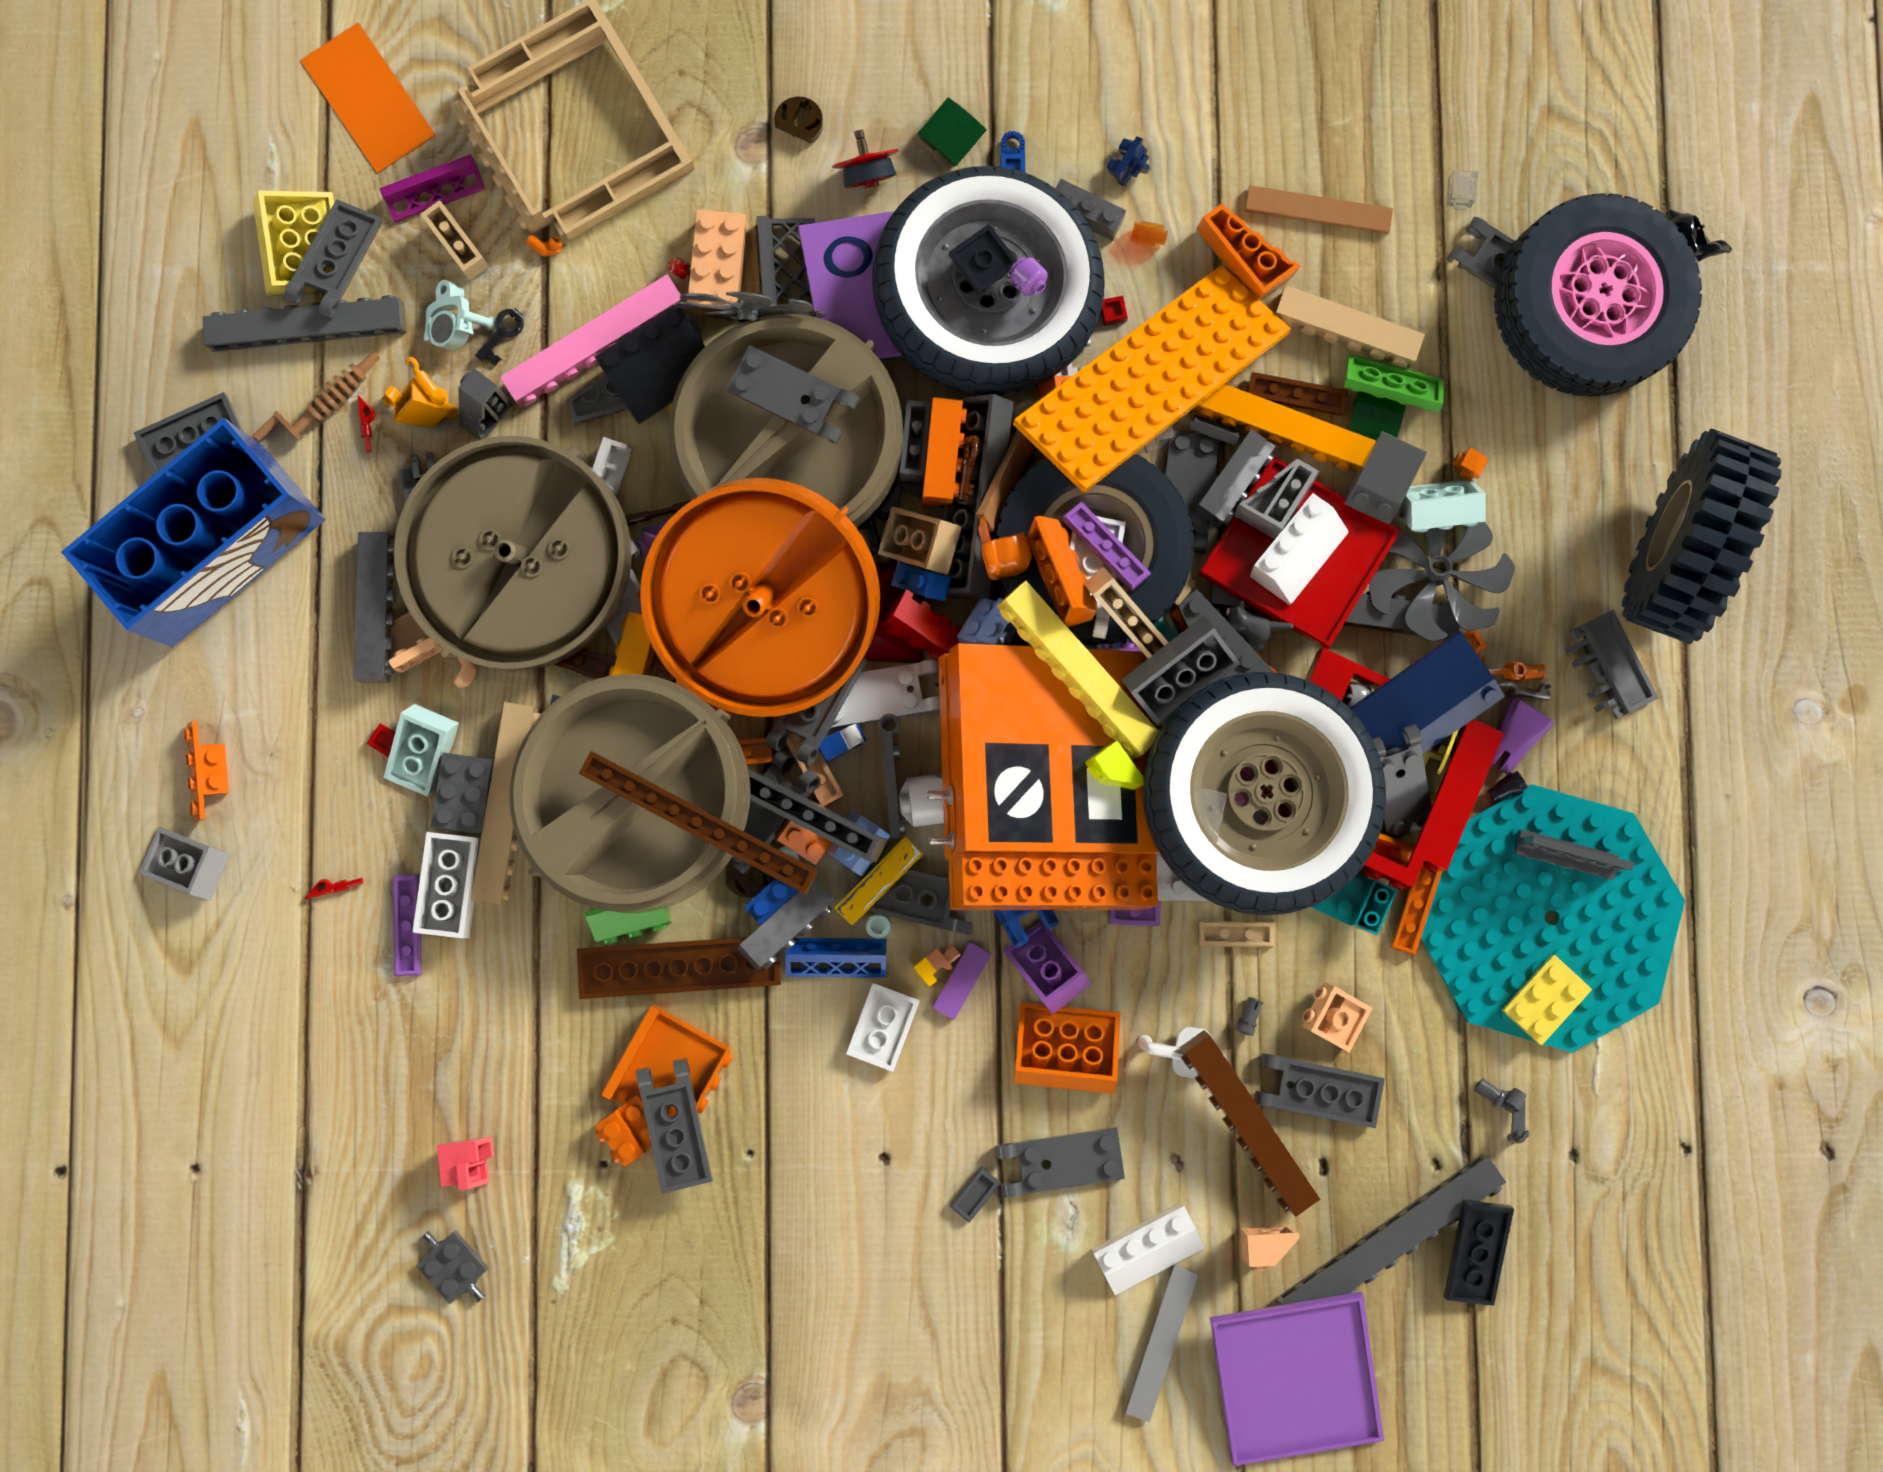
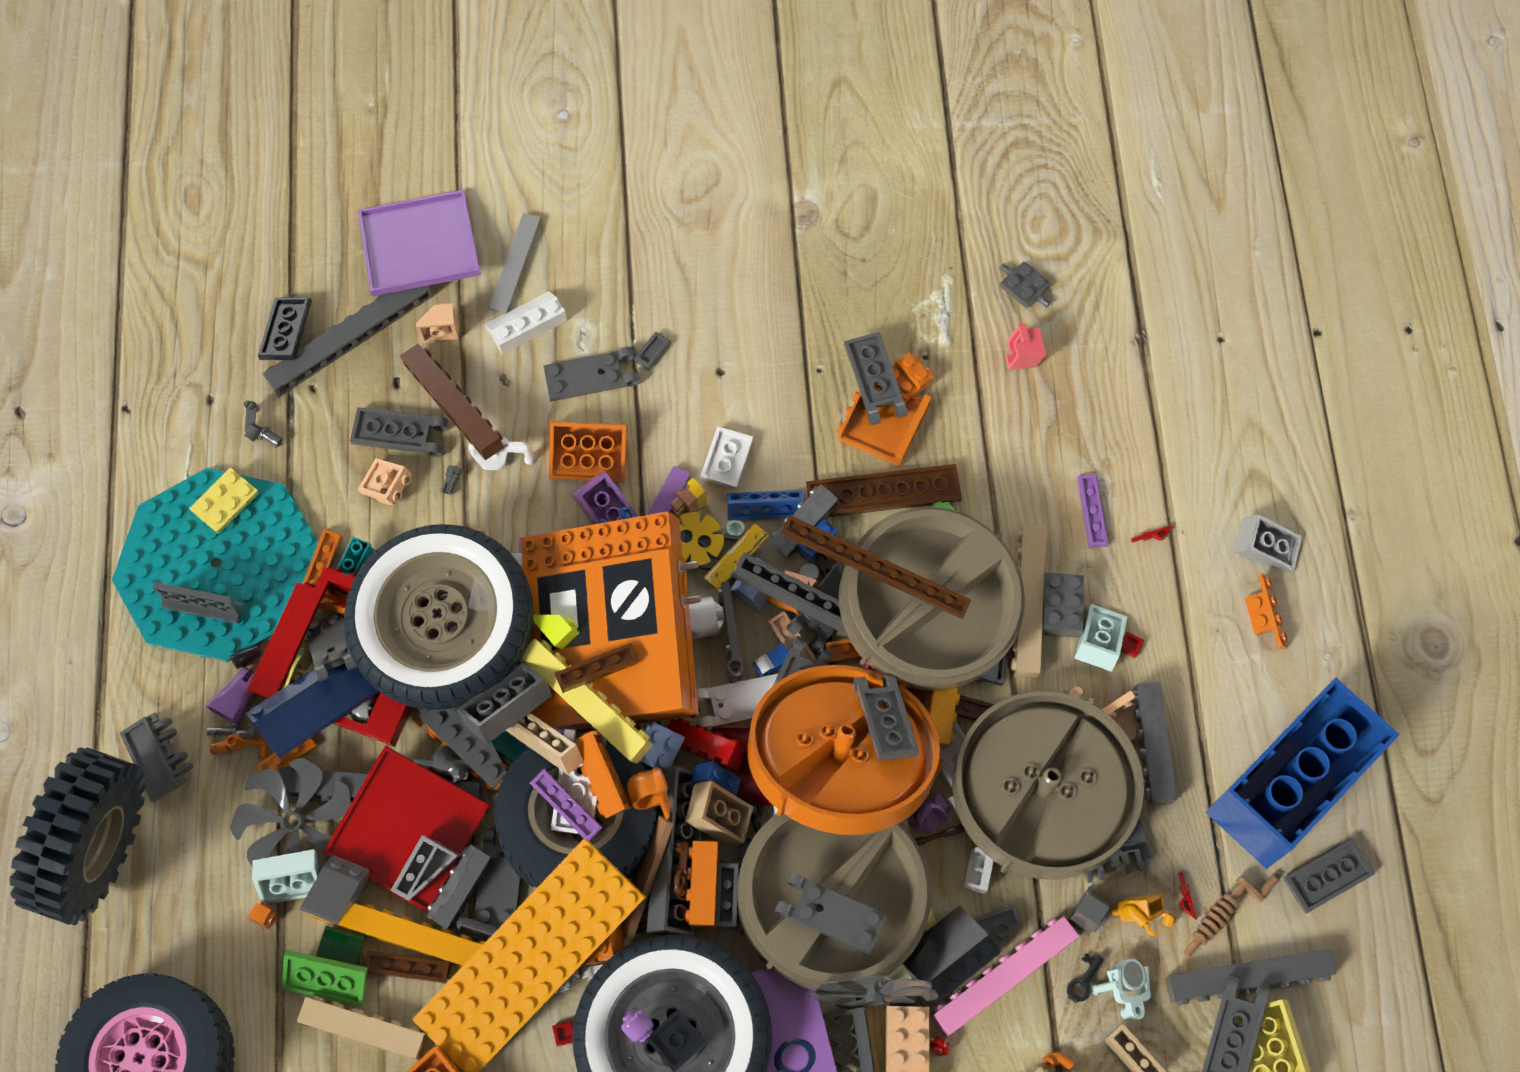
camera: 175 degrees right, 15 degrees down
(446, 885) = (1065, 535): white brick -> none
(701, 617) = (889, 726): none -> dark grey hinge
(916, 925) = (706, 527): none -> yellow piece
(1064, 702) = (596, 667): none -> reddish brown plate
(1300, 549) = (406, 825): white slope -> none

